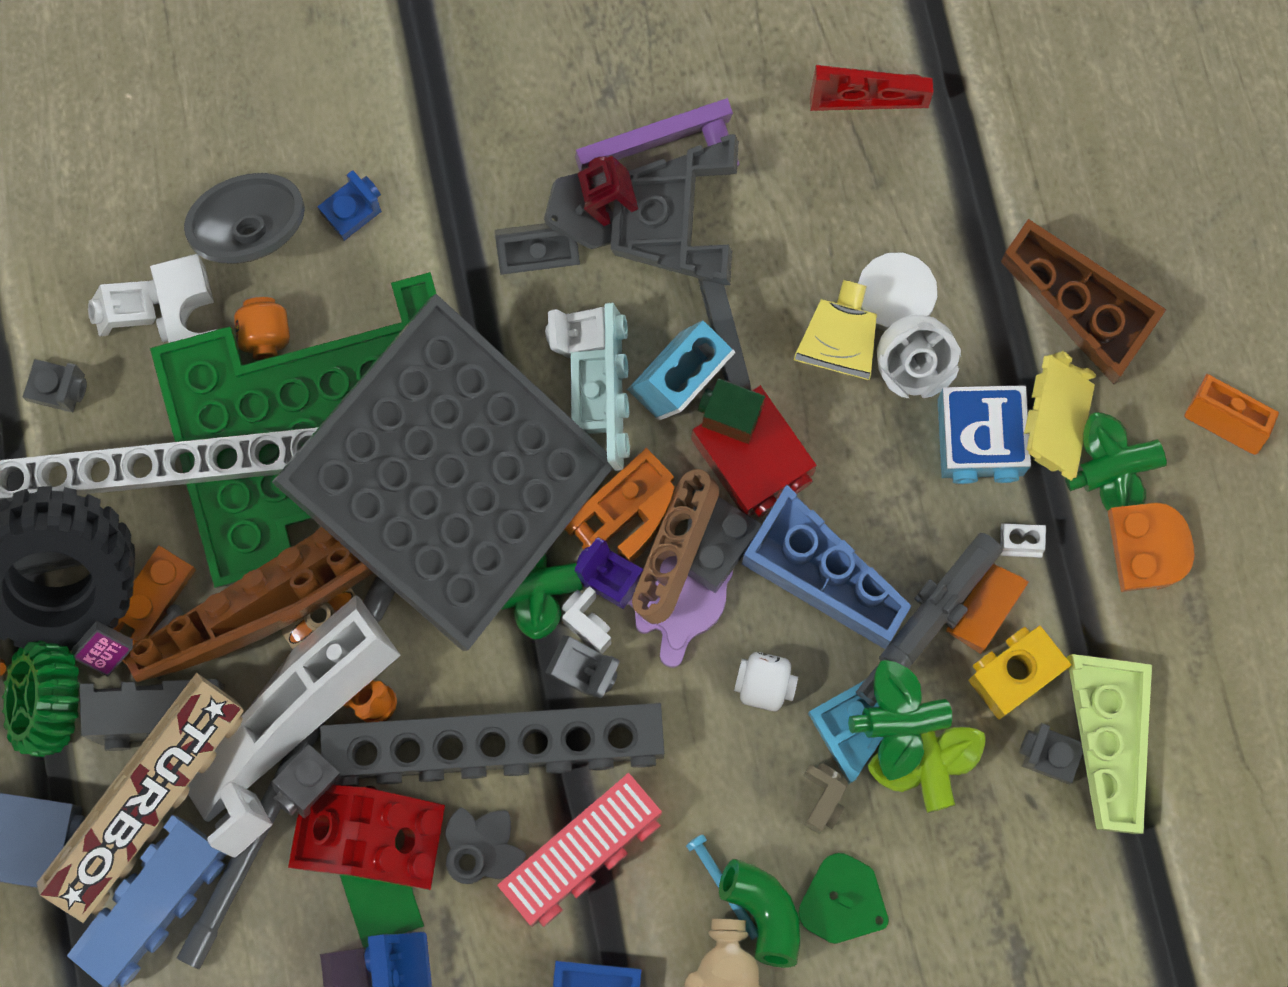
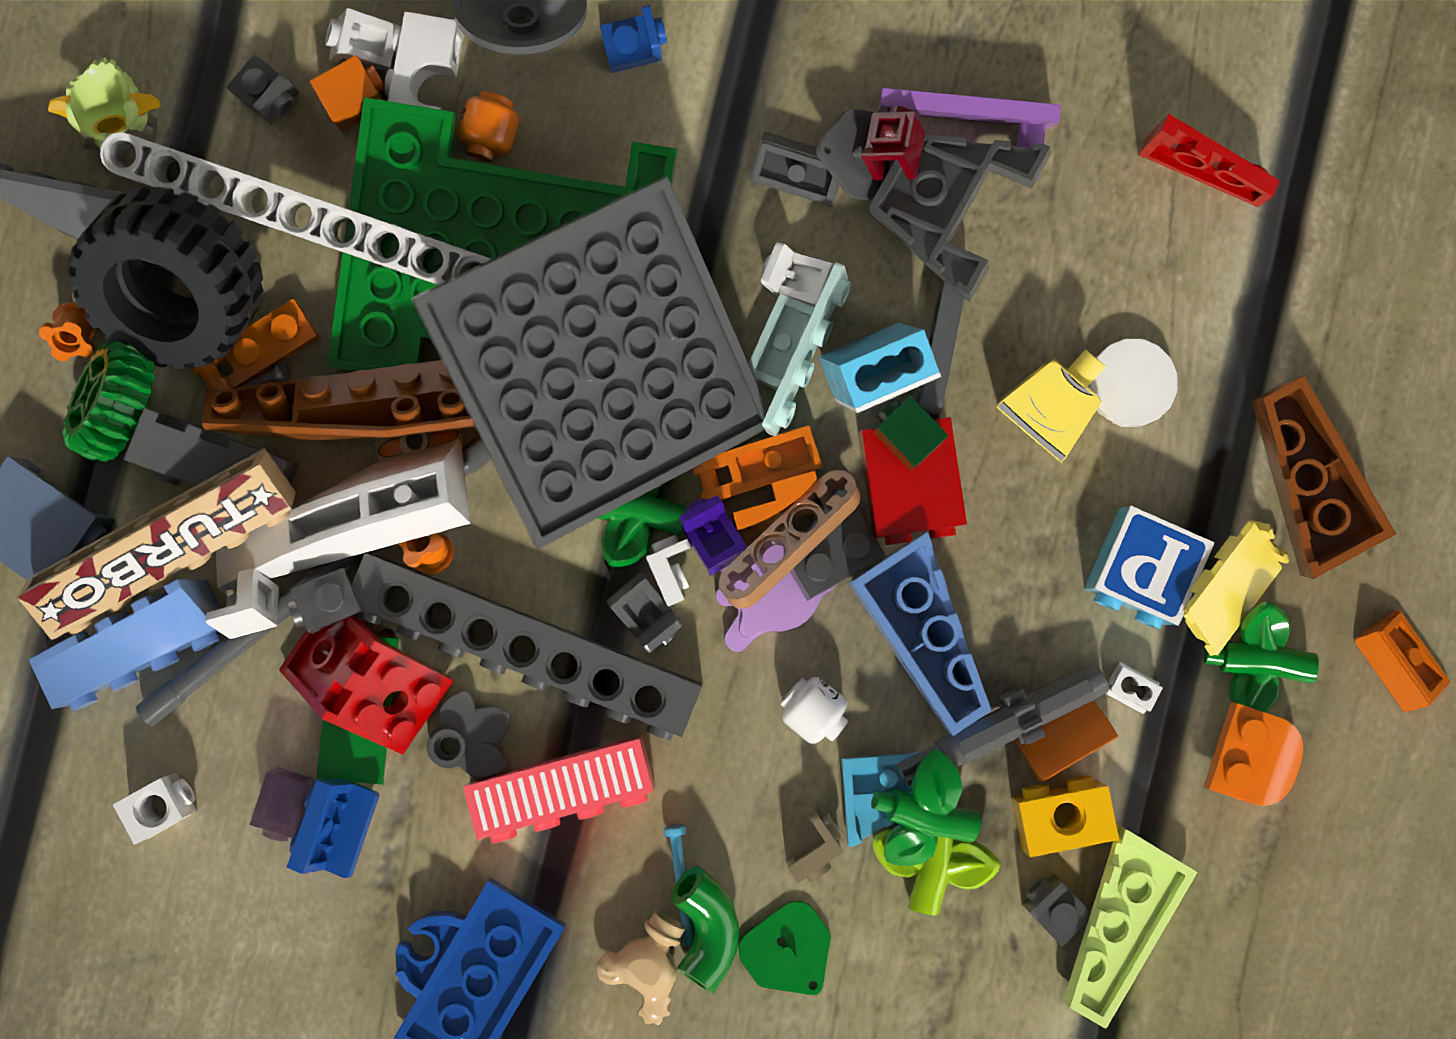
camera: 25 degrees right, 10 degrees up
(102, 648) = (186, 379): tile -> none
(129, 353) = (344, 90): none -> orange brick
(918, 356) = (1121, 461): white cylinder -> none

